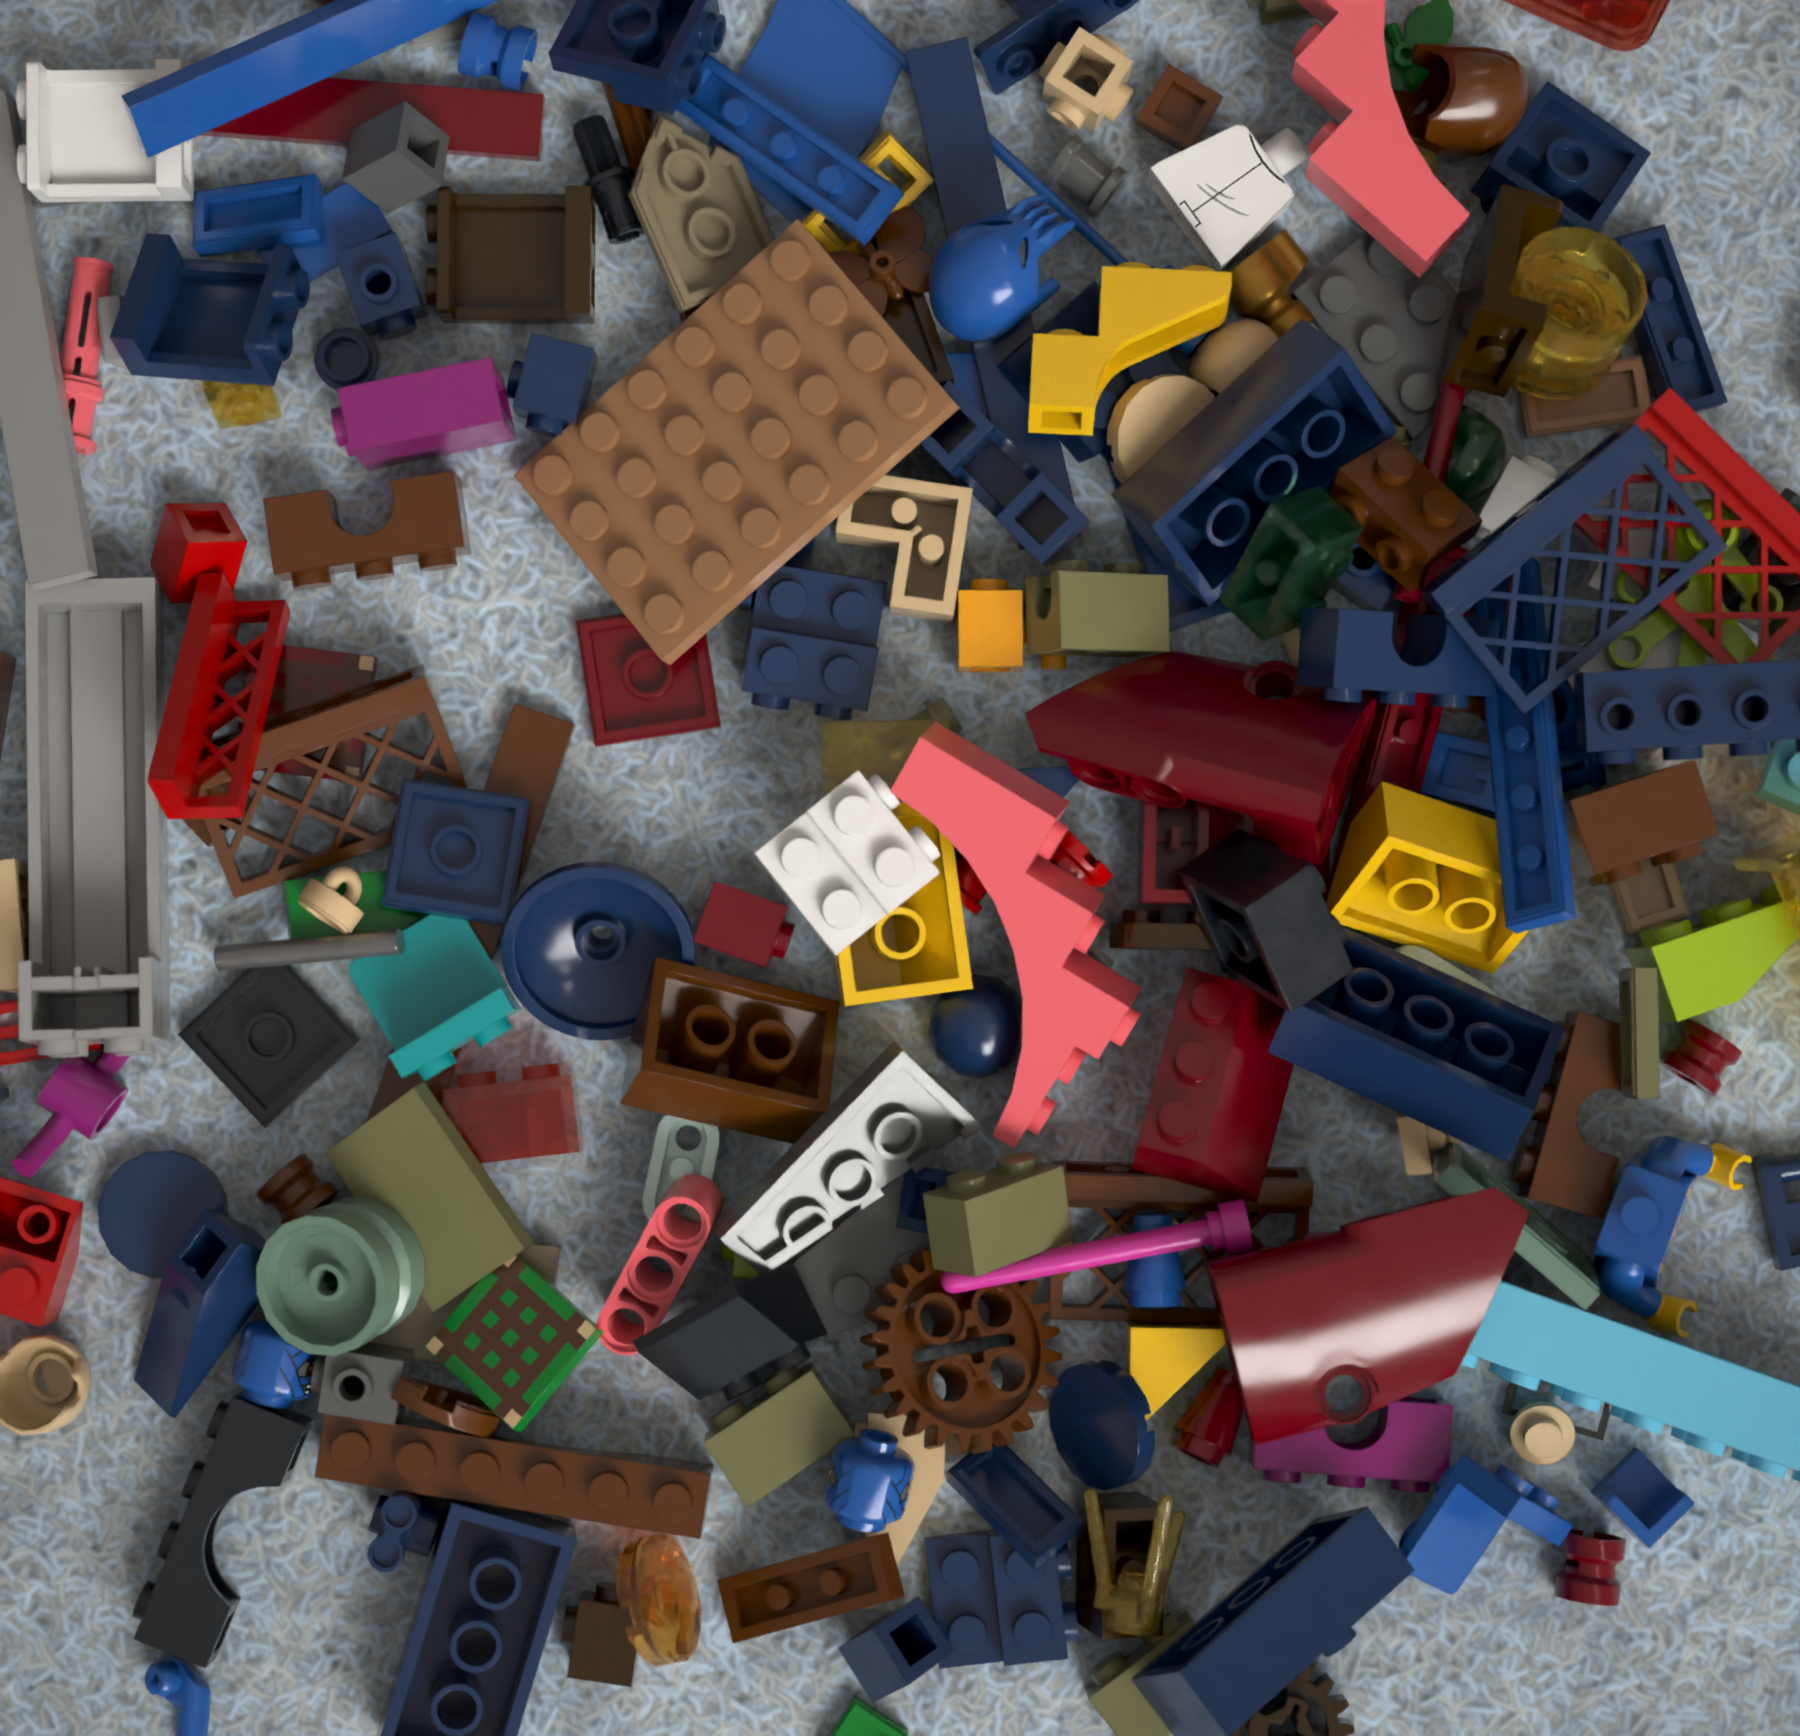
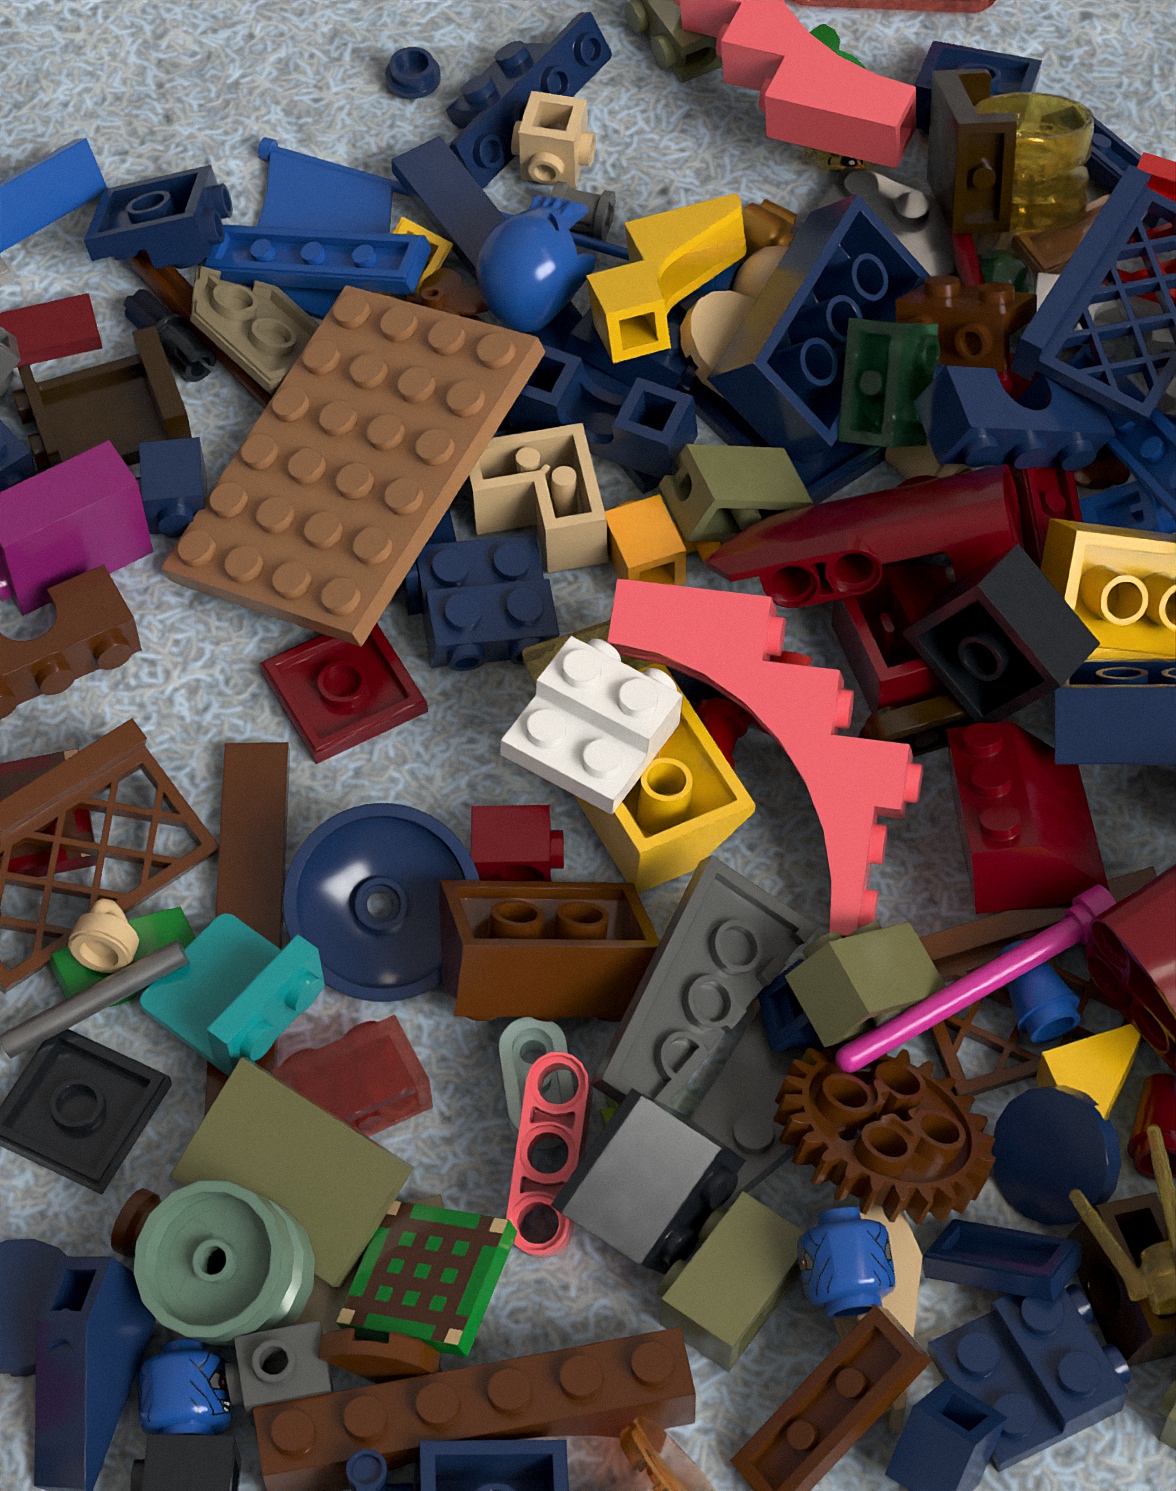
camera: 15 degrees left, 30 degrees down
(455, 852) = (212, 867): dark blue tile -> none
(496, 51) = (36, 273): blue wheel -> none
(977, 1027) = (778, 859): dark blue hair -> none
(1178, 109) = (639, 147): reddish brown plate -> none
(1227, 190) = (701, 168): white torso -> none
(1471, 95) = (879, 40): reddish brown helmet -> none

